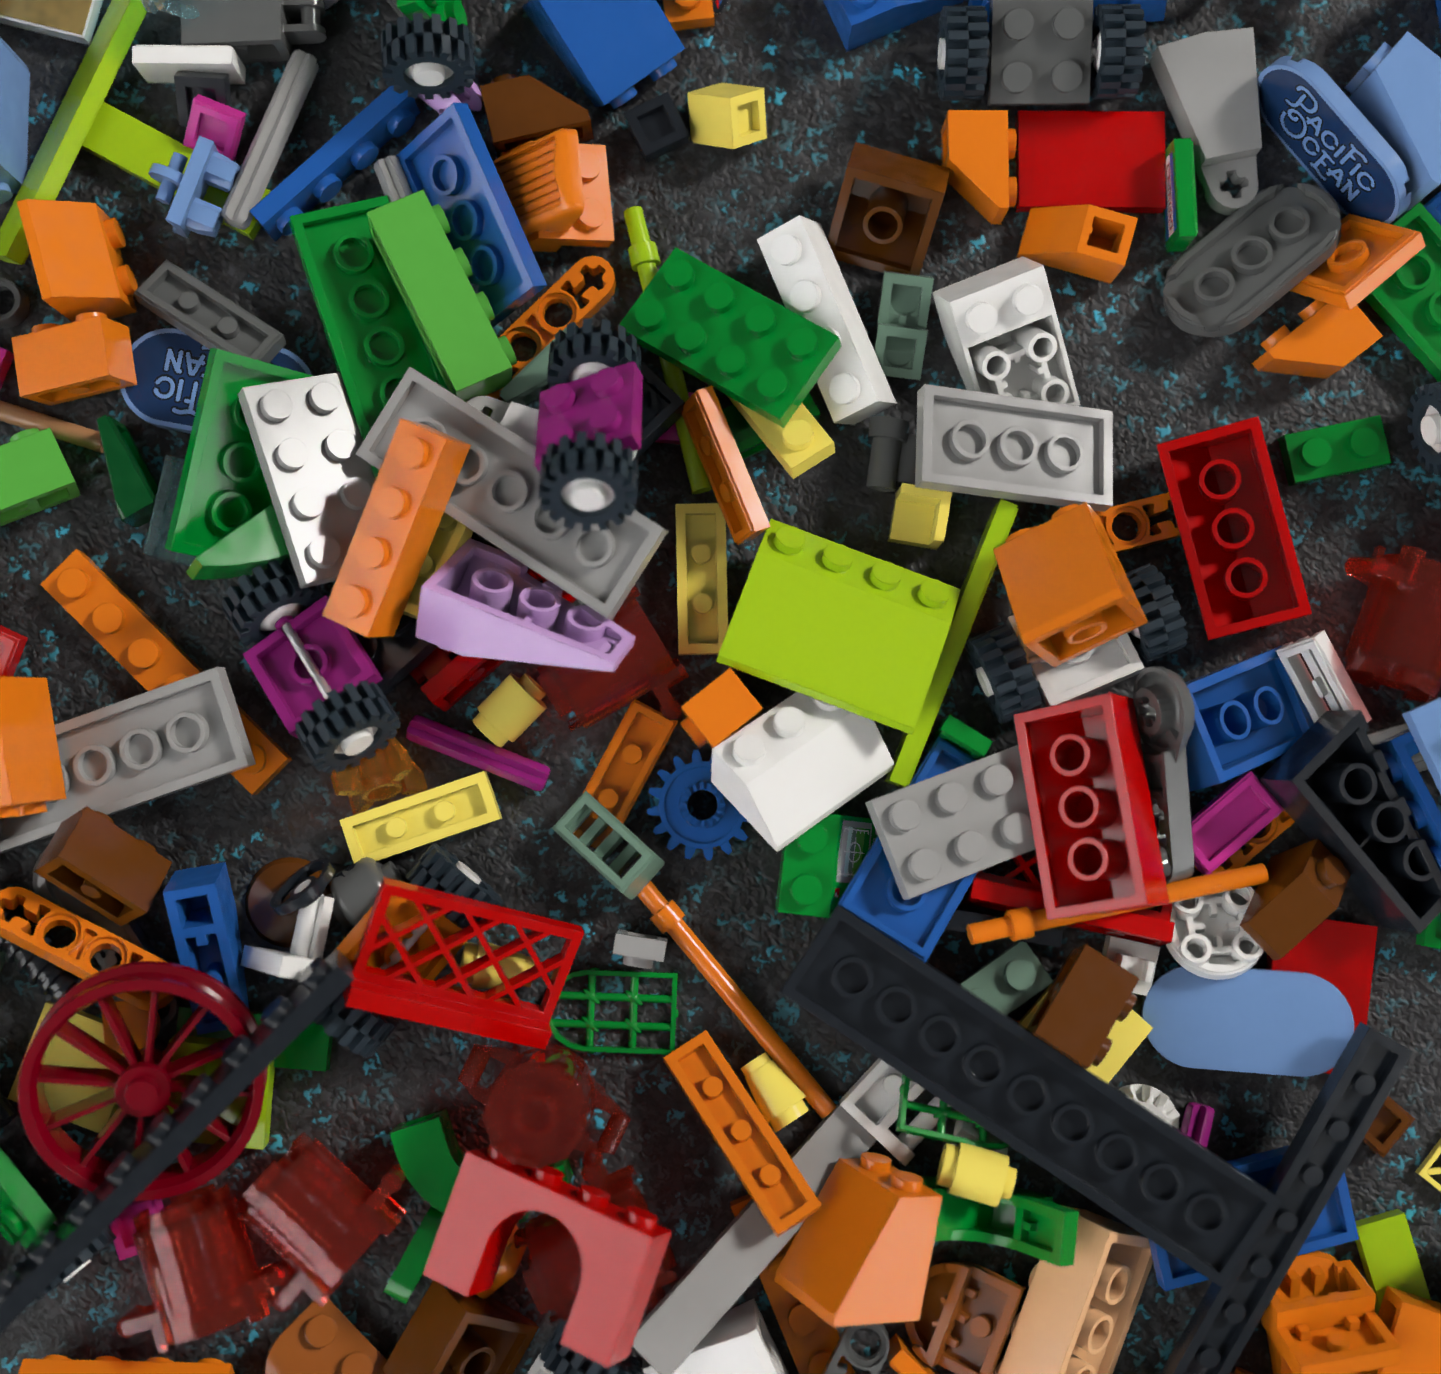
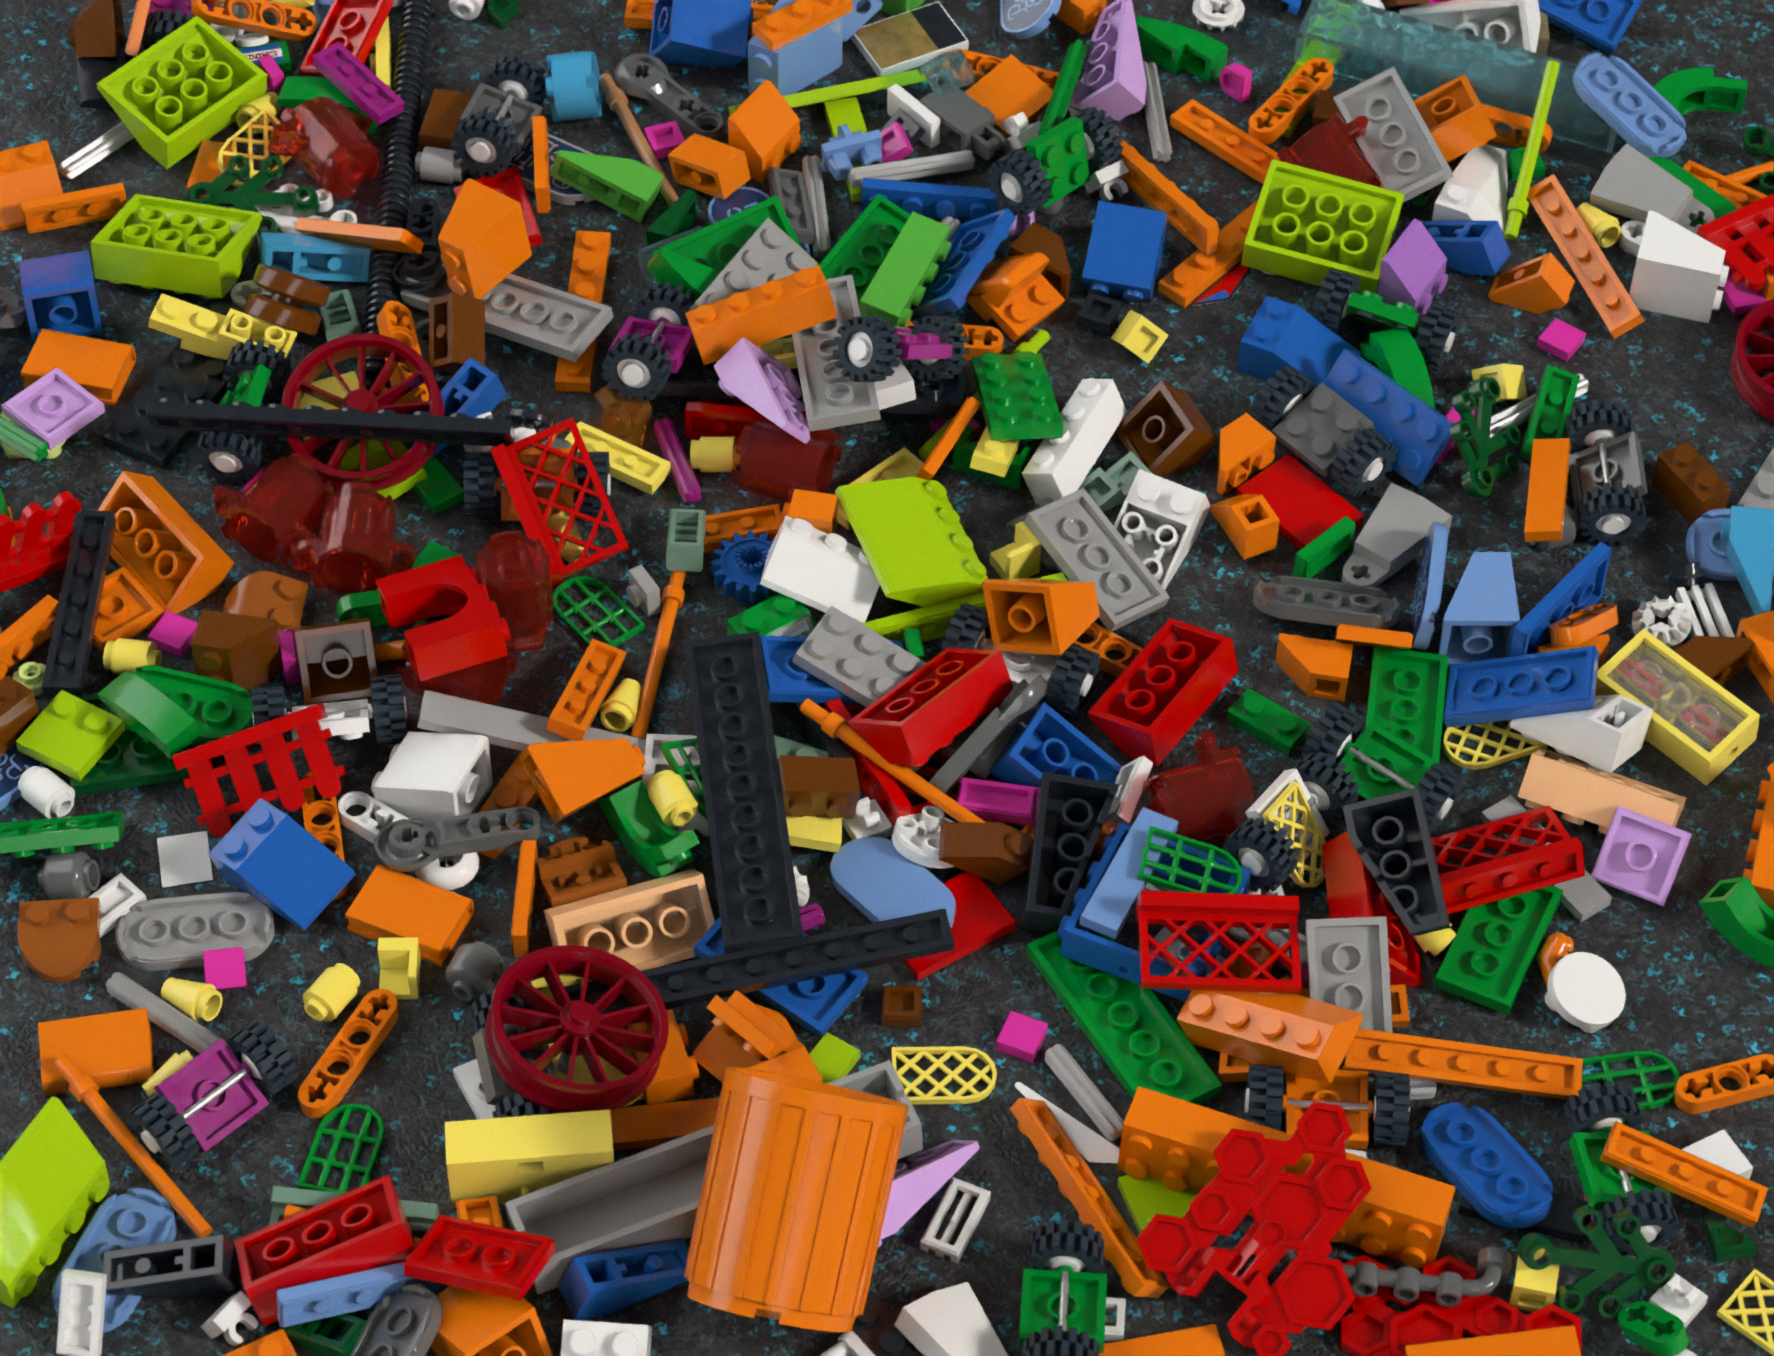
camera: 55 degrees right, 35 degrees down
(218, 277) = (816, 197): none -> light grey axle

